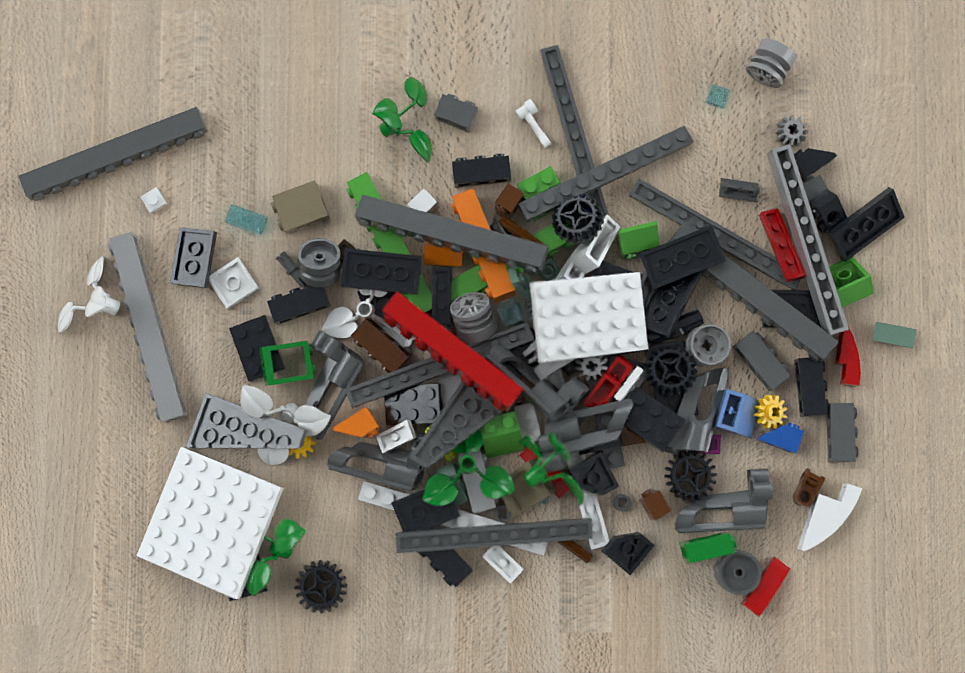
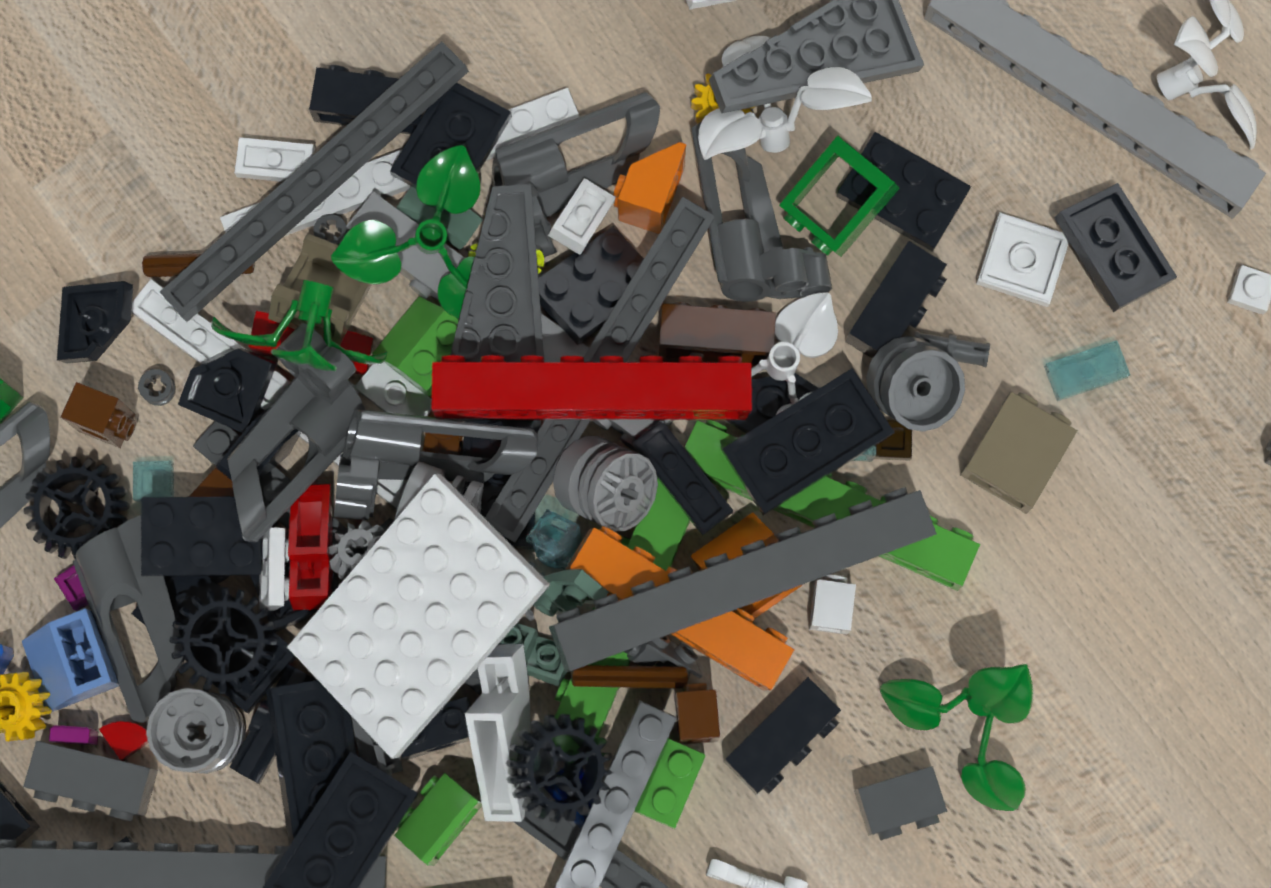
camera: 140 degrees right, 5 degrees down
(651, 464) = (153, 479): none -> clear light blue tile
(736, 368) = (125, 738): none -> red tile
(756, 383) = (73, 735): none -> magenta tile

